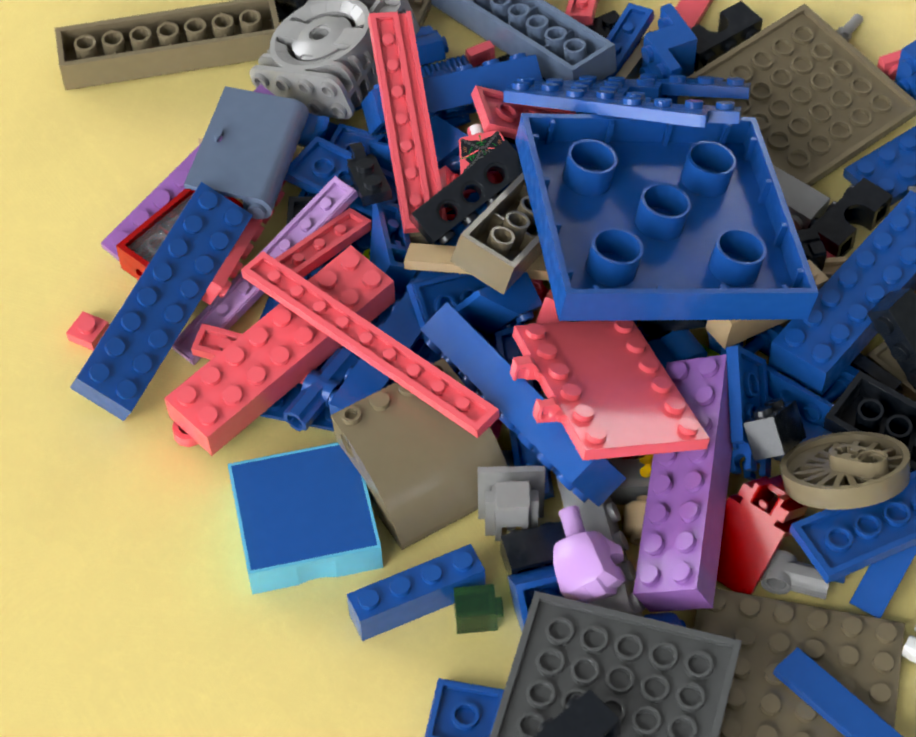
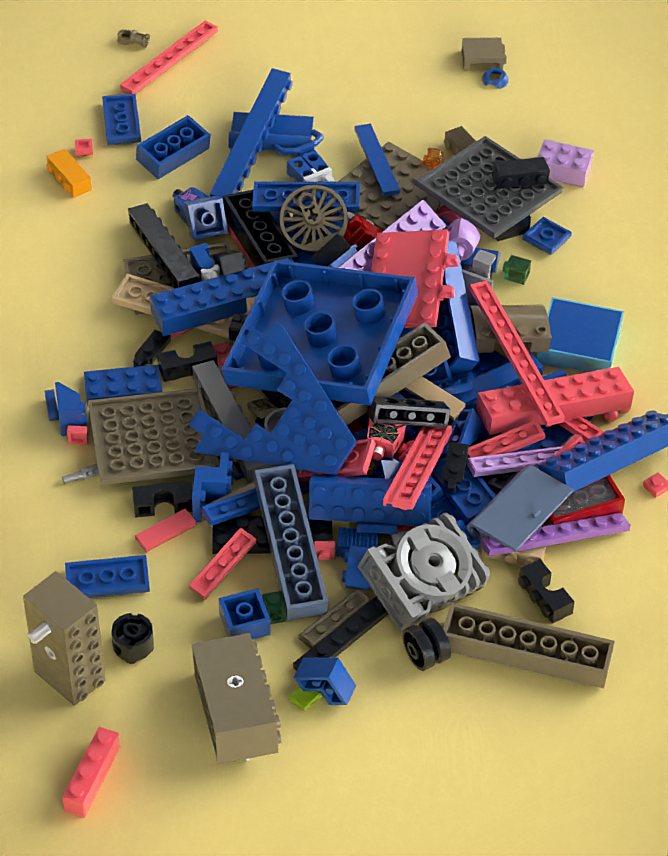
camera: 155 degrees left, 5 degrees down
(161, 108) = (553, 604): none -> black arch
(413, 592) = (542, 284): blue brick -> none

